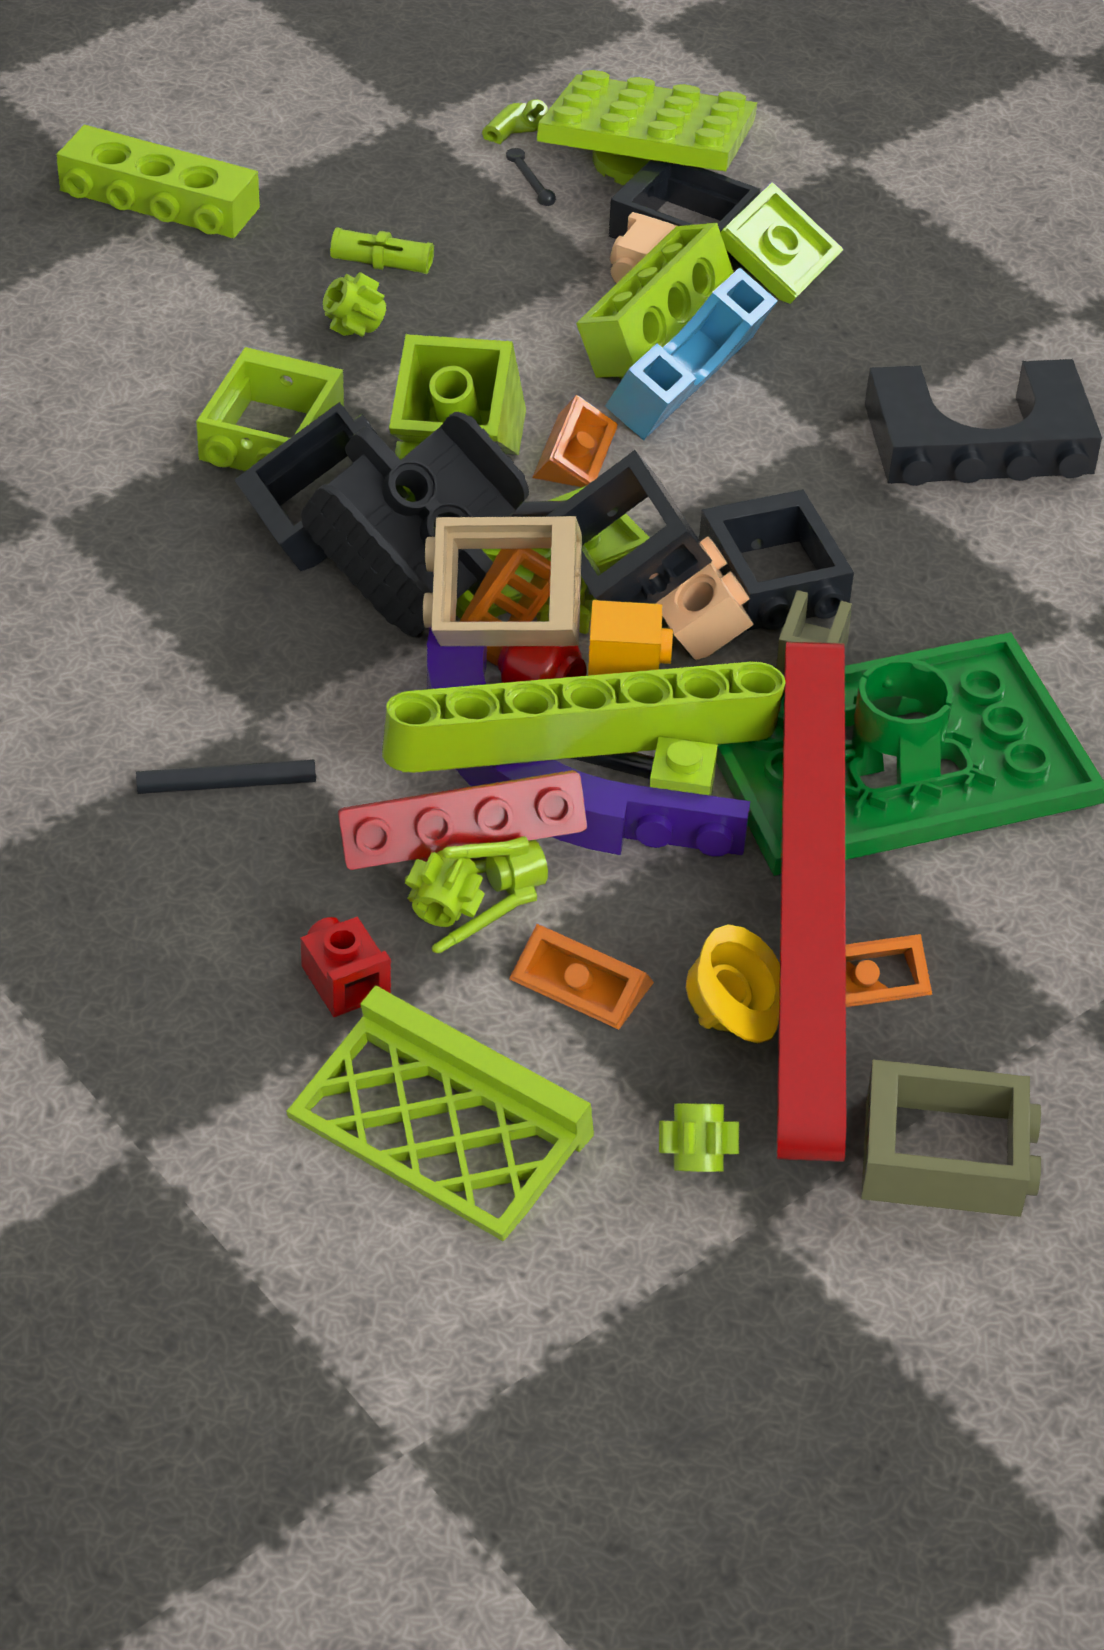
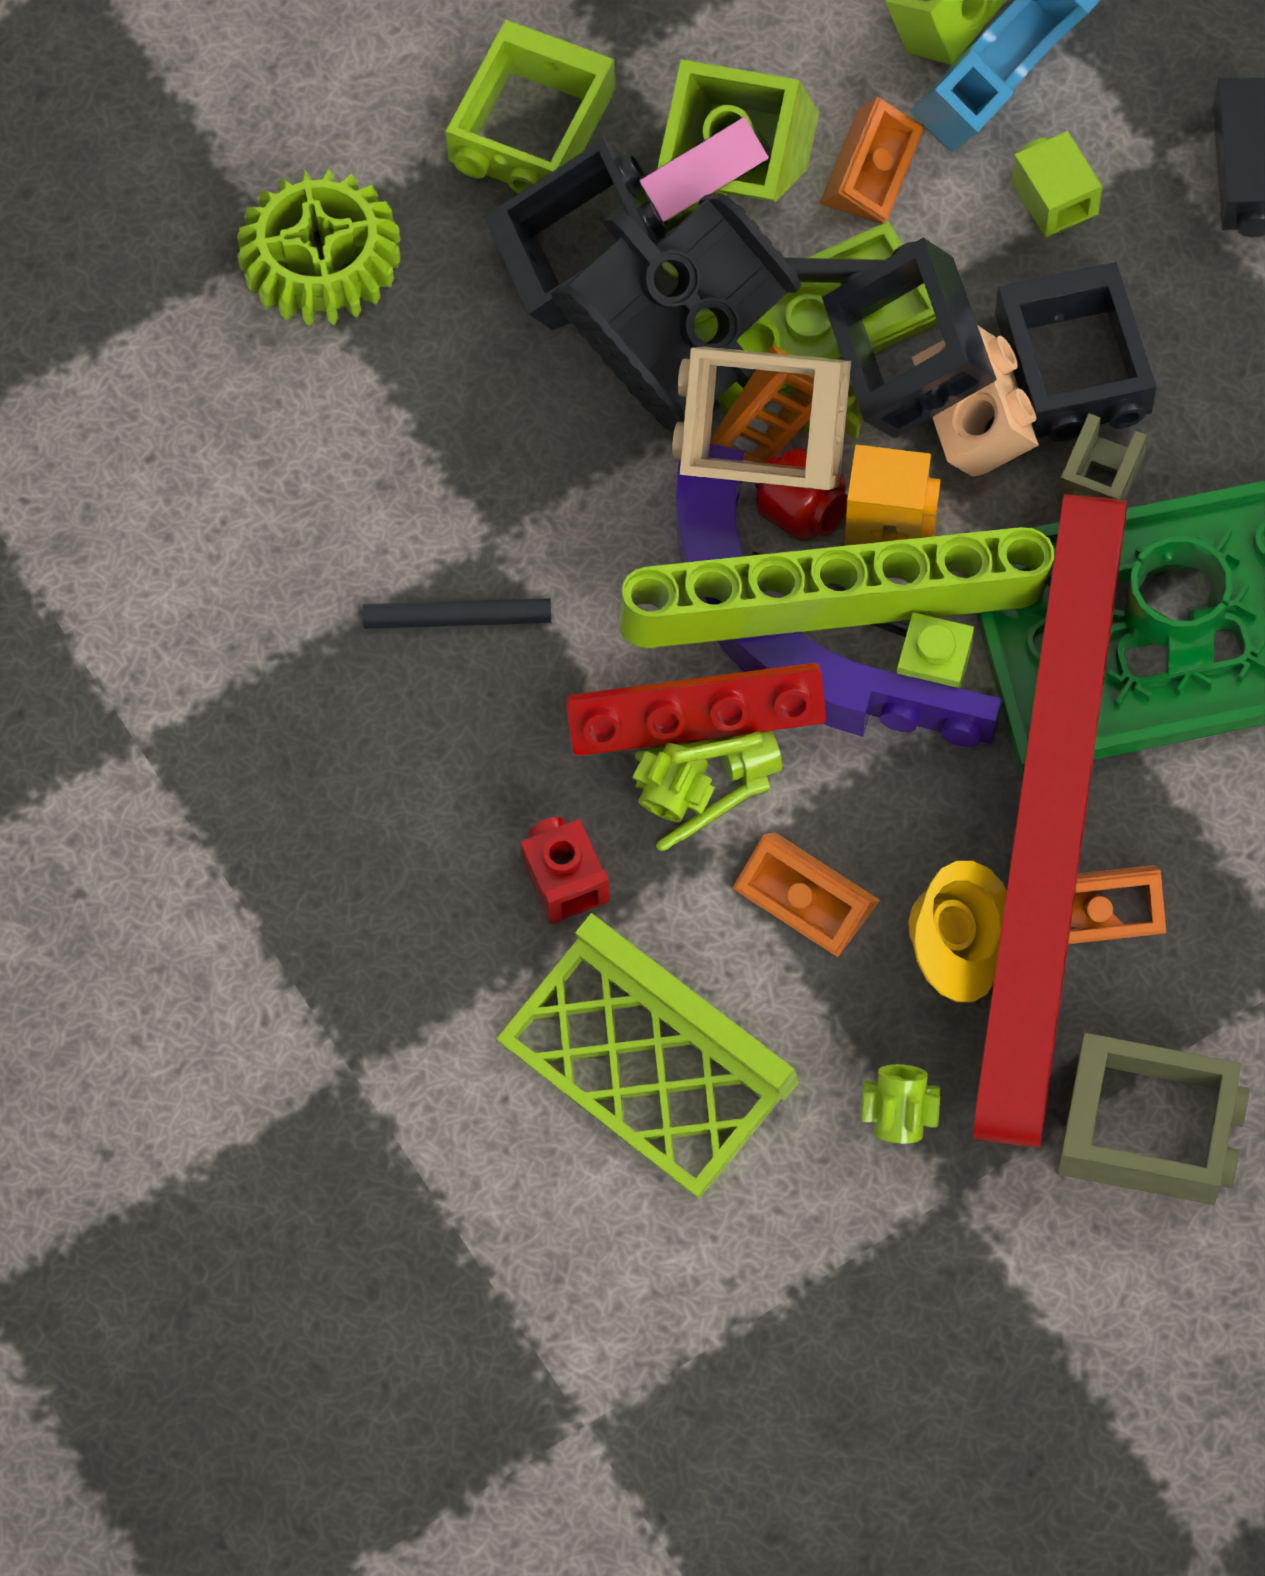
camera: 10 degrees right, 20 degrees up
(83, 513) = (363, 230): none -> lime gear
(425, 417) = (704, 169): none -> bright pink sticker
(740, 449) = (1056, 183): none -> lime brick

